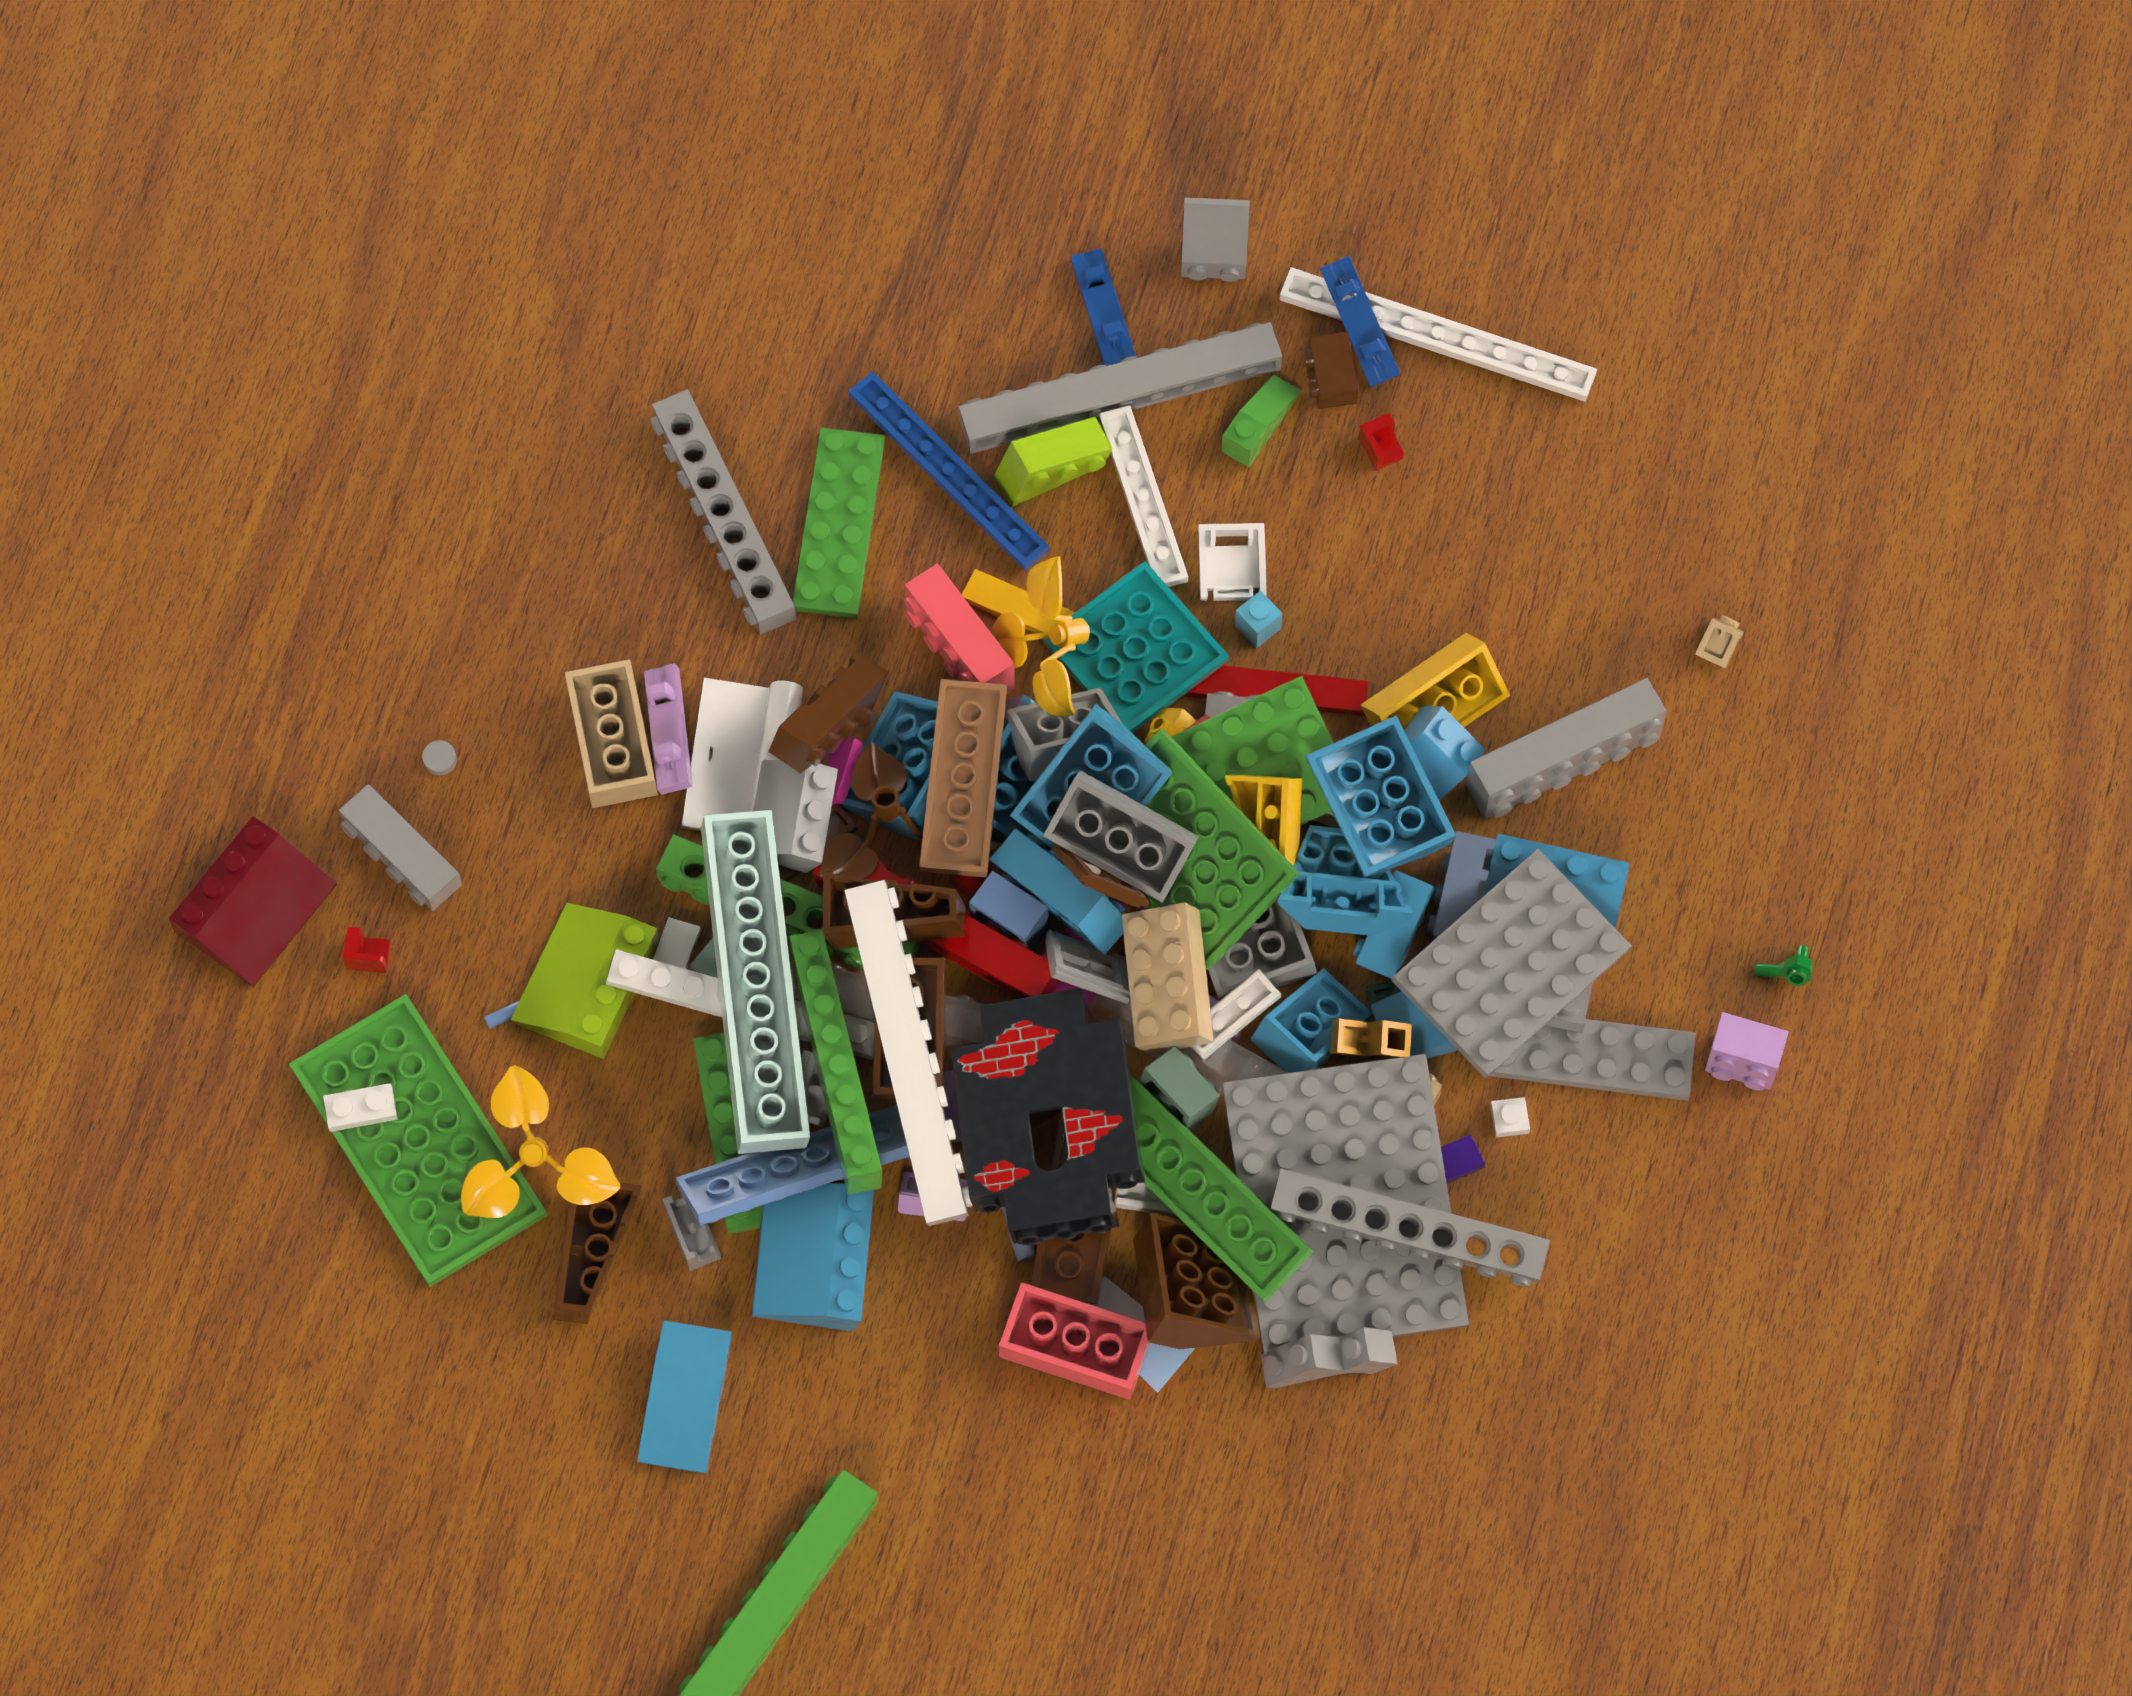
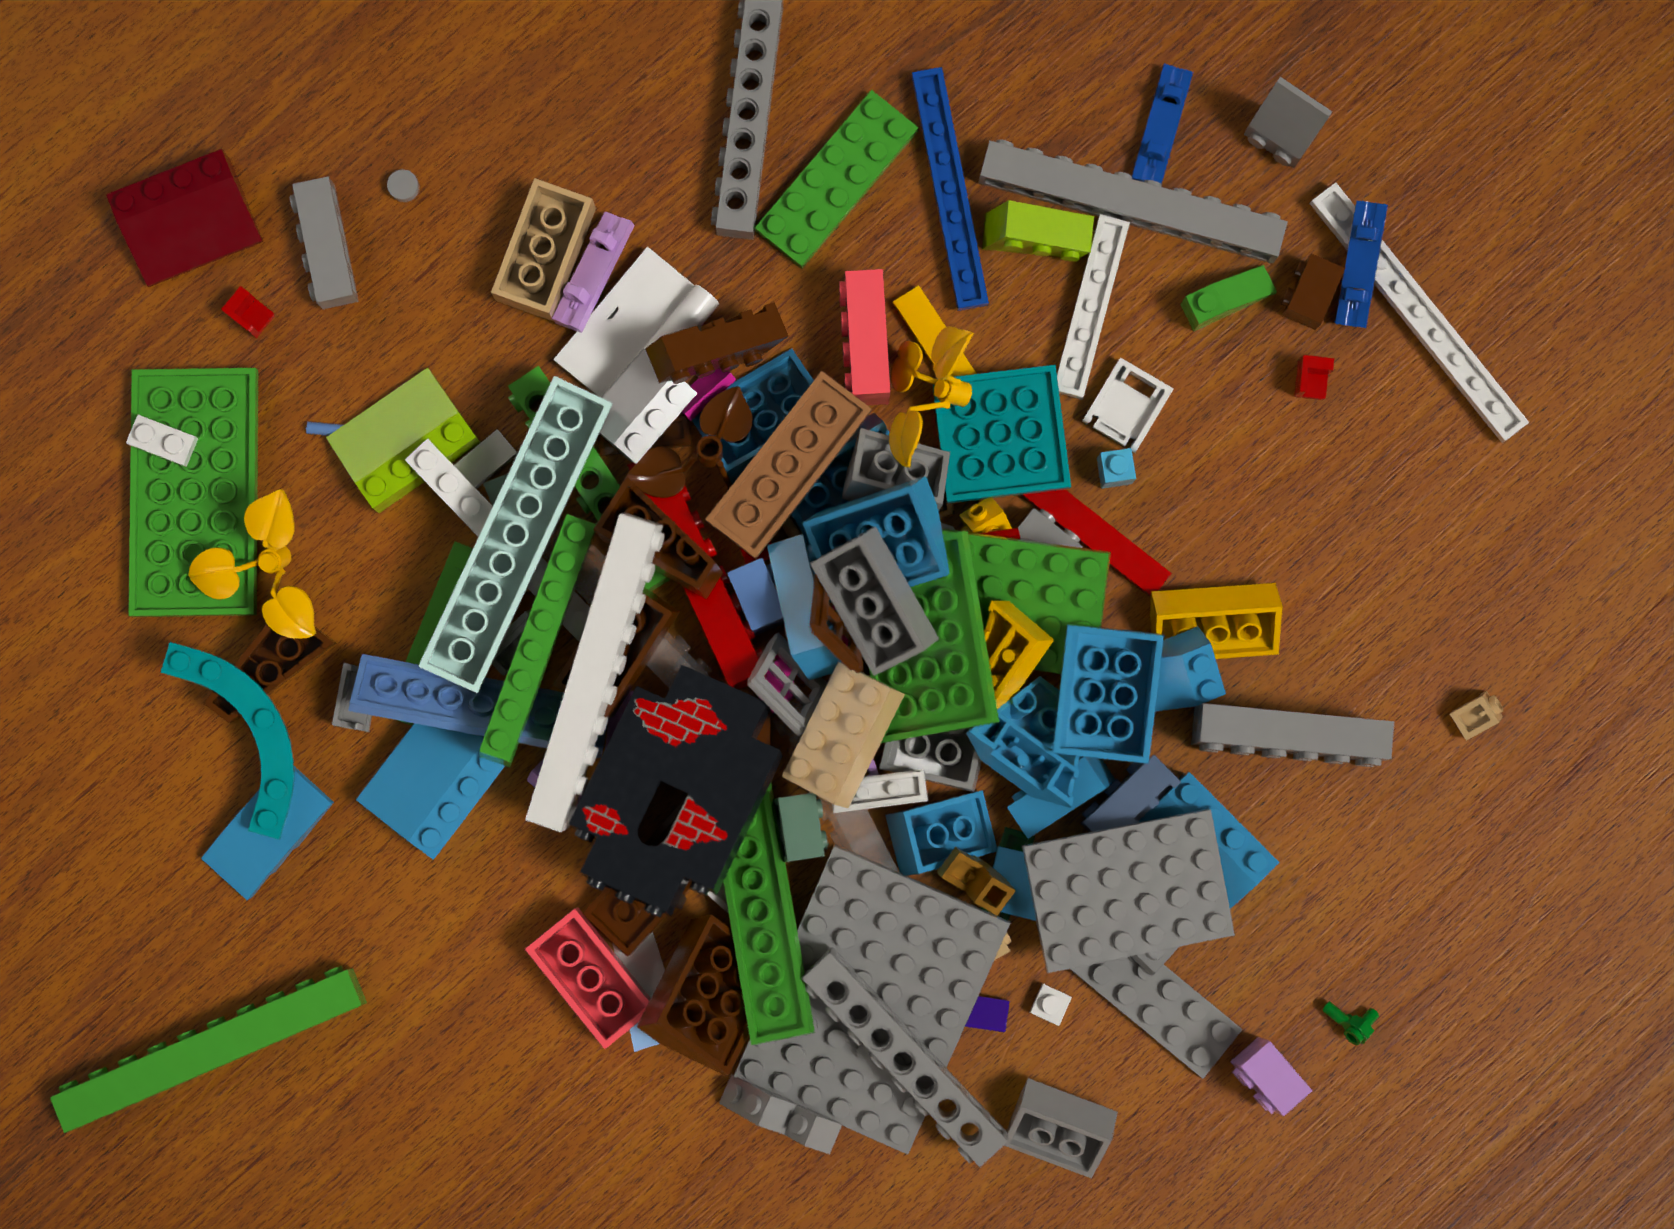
camera: 30 degrees right, 15 degrees up
(620, 1289) = (262, 718): none -> teal plate
(1591, 1216) = (1060, 1128): none -> light grey slope

